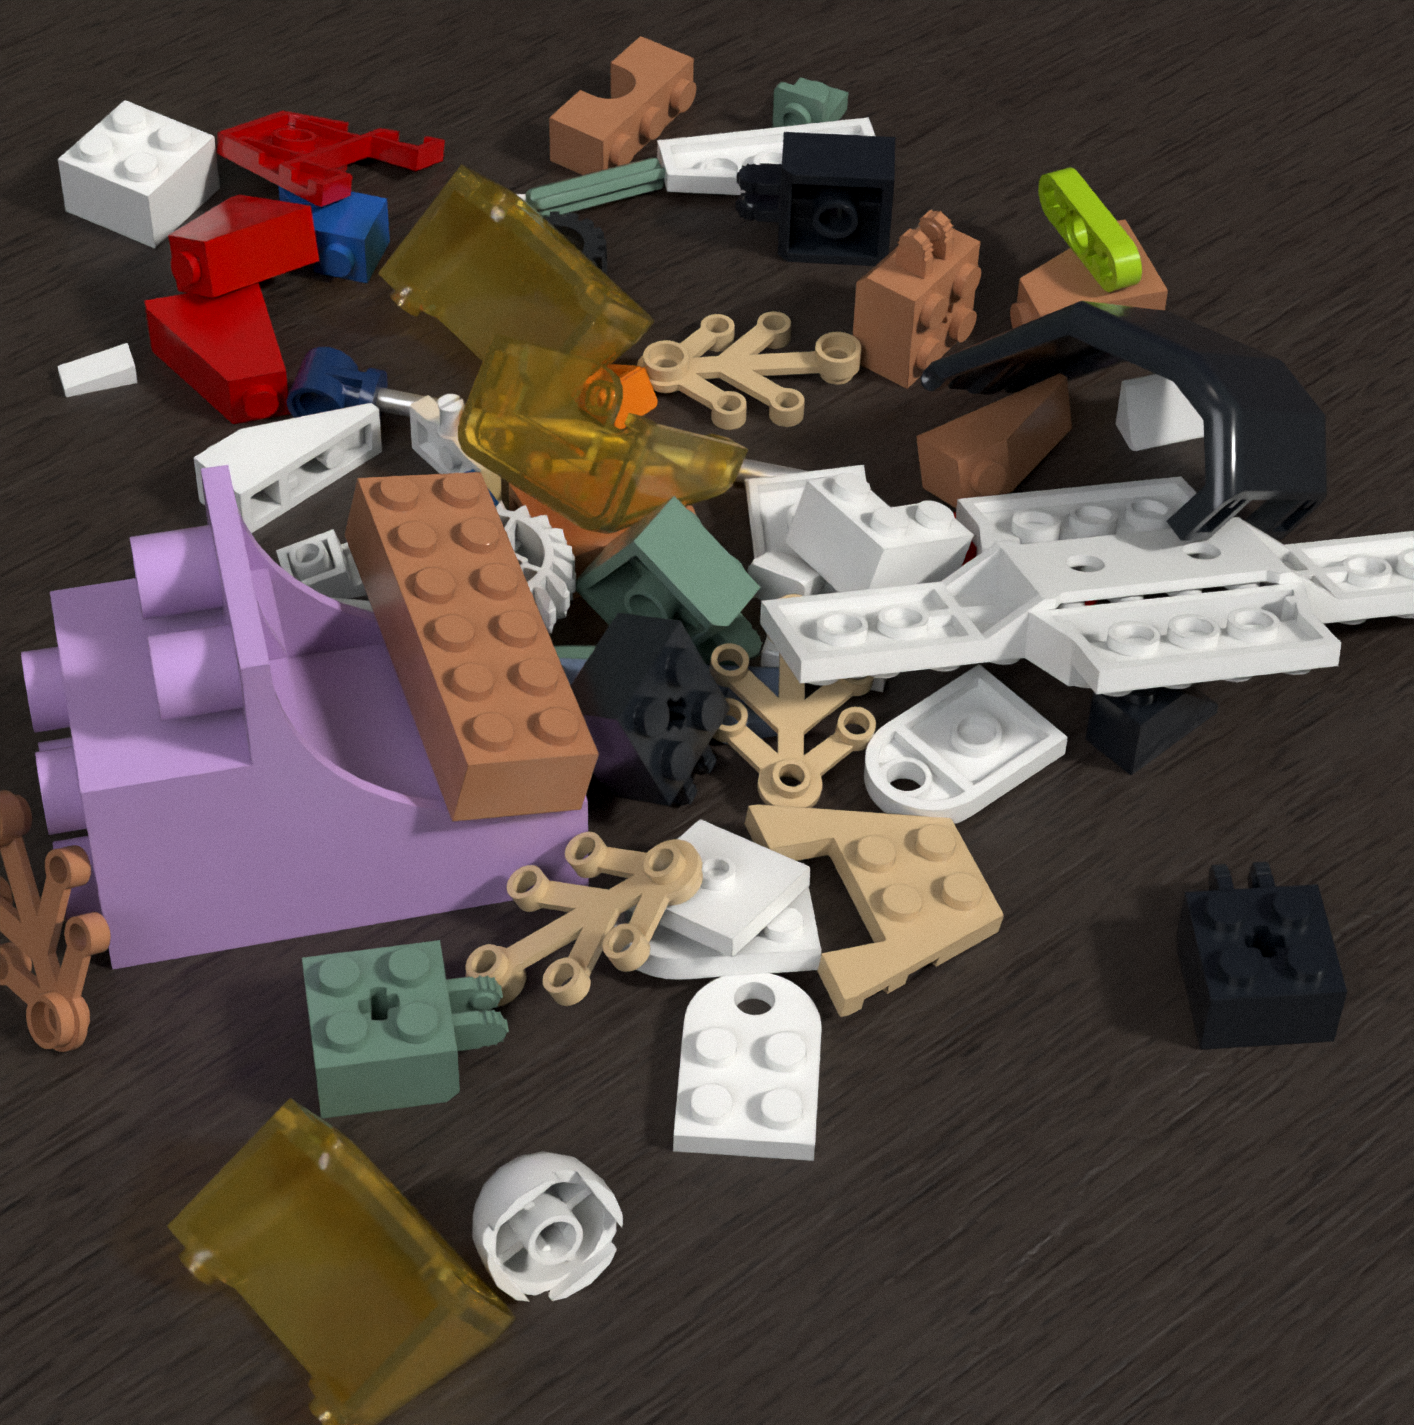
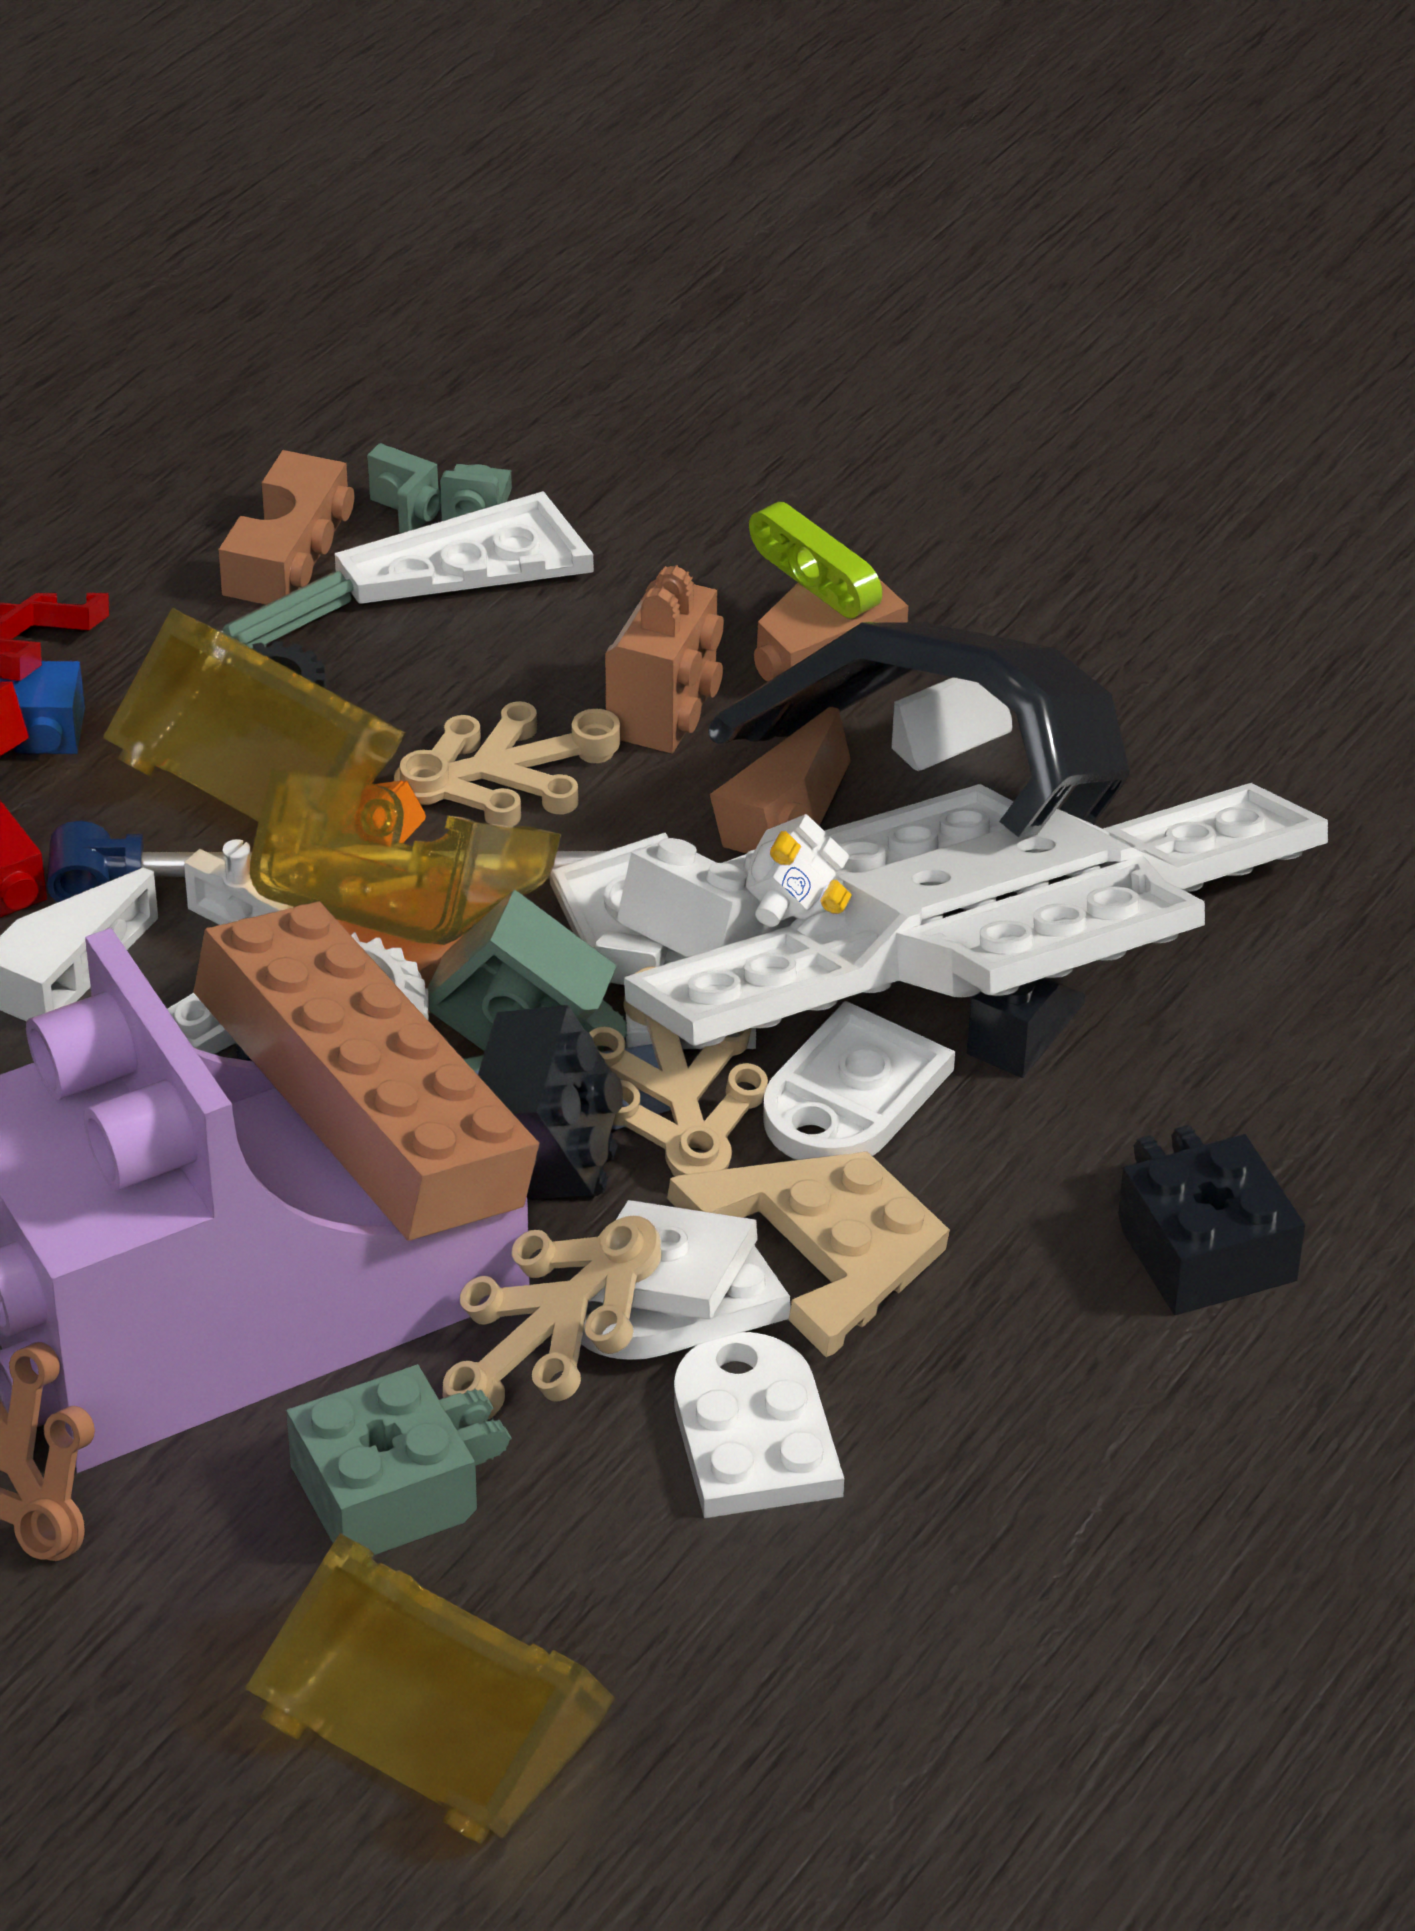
camera: 15 degrees left, 5 degrees down
(545, 1226) = (616, 1604): white cylinder -> none
(744, 88) = (405, 485): none -> sand green bracket
(826, 196) = (535, 578): black hinge -> none
(954, 533) = (795, 872): none -> white piece

